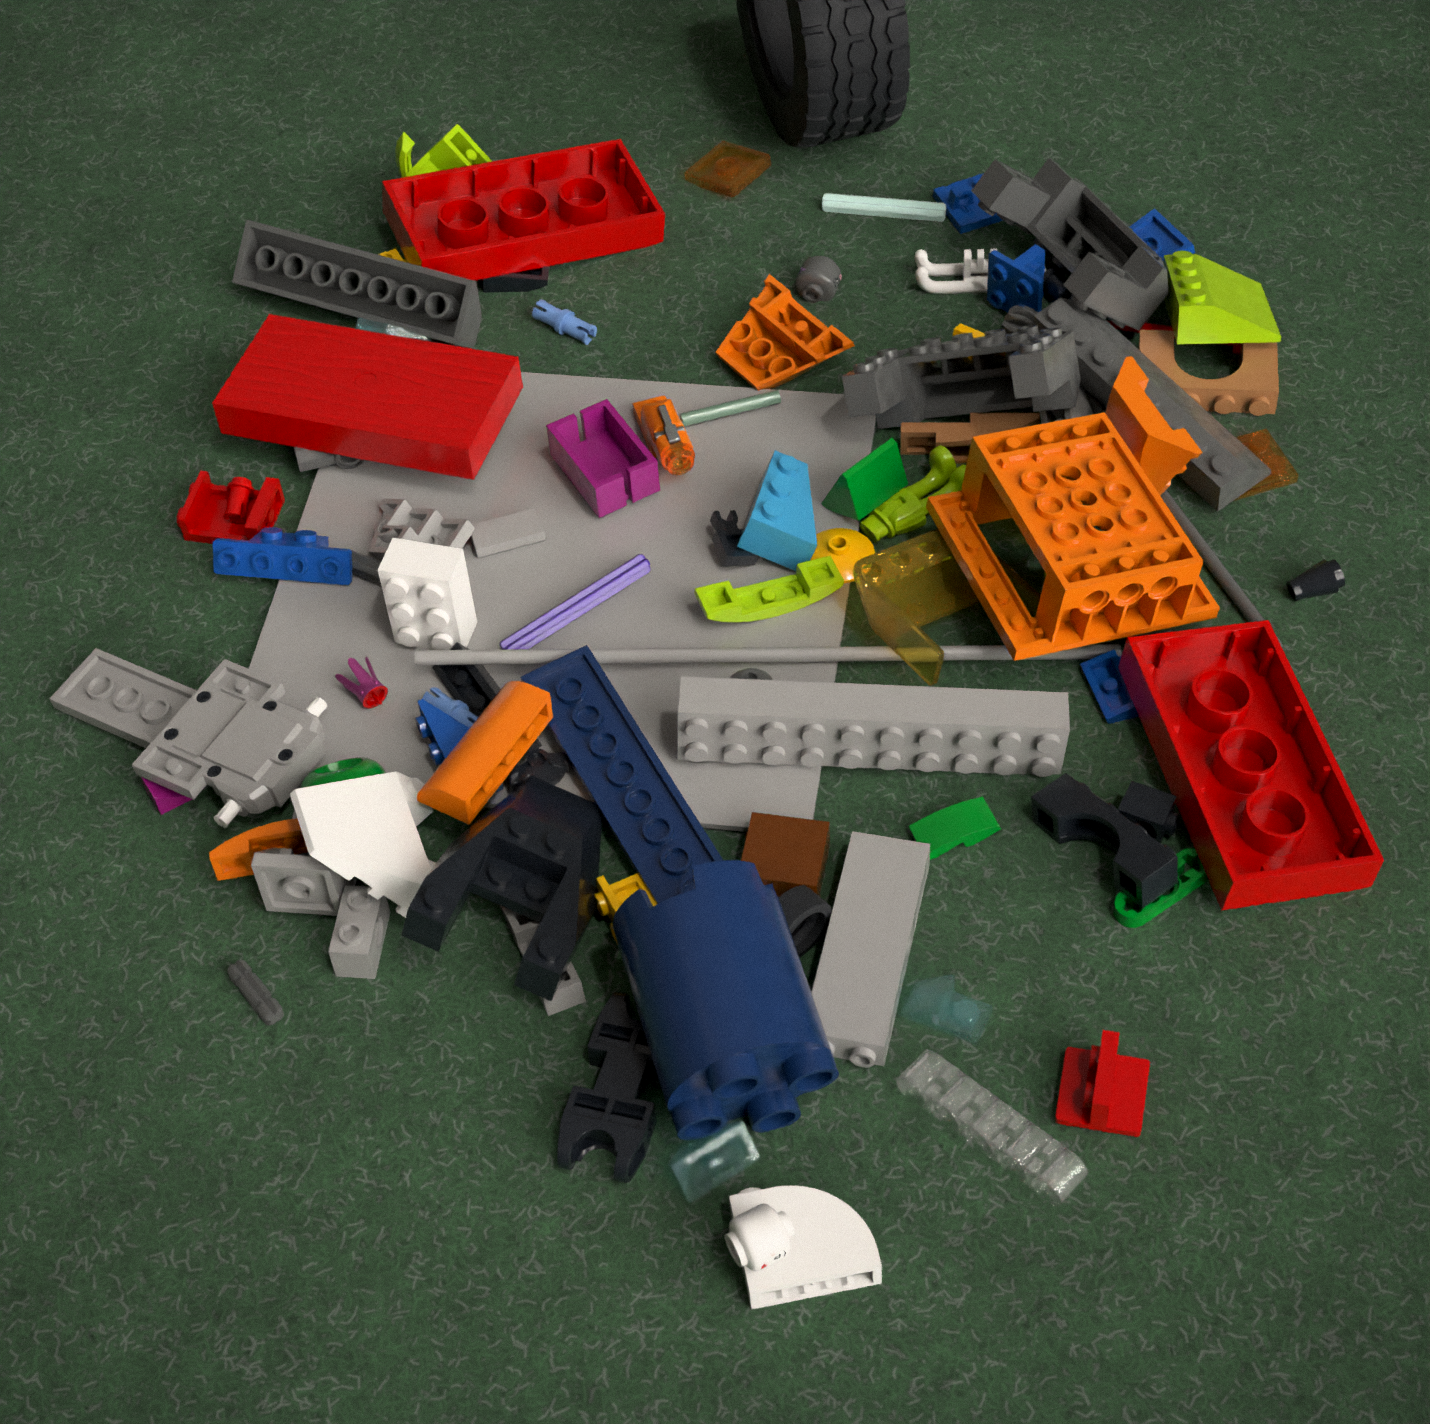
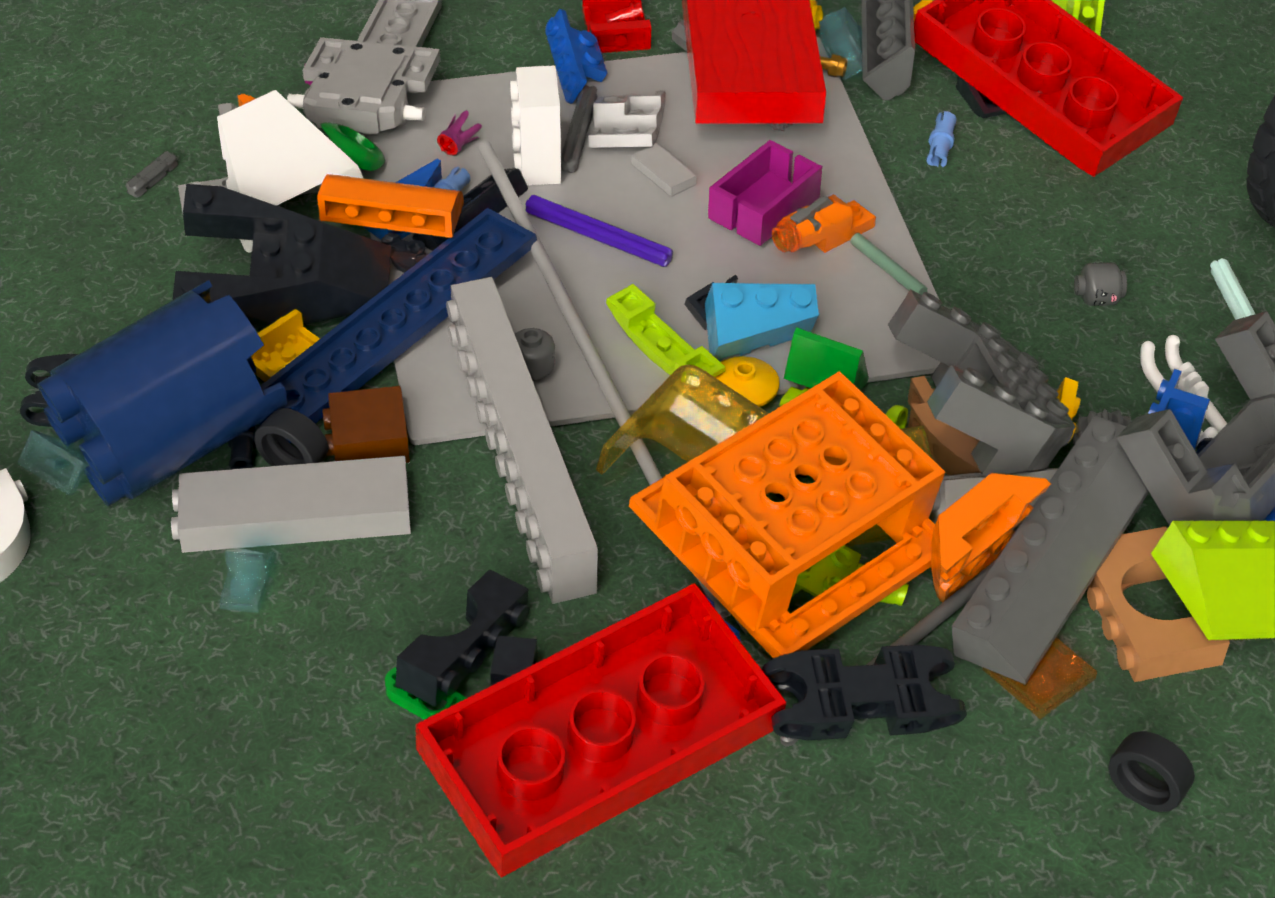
camera: 65 degrees right, 5 degrees down
(728, 168) = (1216, 190): clear orange plate -> none
(778, 339) = (997, 276): orange wedge -> none
(962, 822) = (454, 536): green slope -> none
(993, 1125) = (122, 630): clear beam -> none
(1103, 1088) = (186, 703): red bracket -> none
(1260, 558) = (837, 694): none -> black piece
(1319, 580) = (892, 755): black cone -> none
(1392, 423) = (1164, 758): none -> black tyre

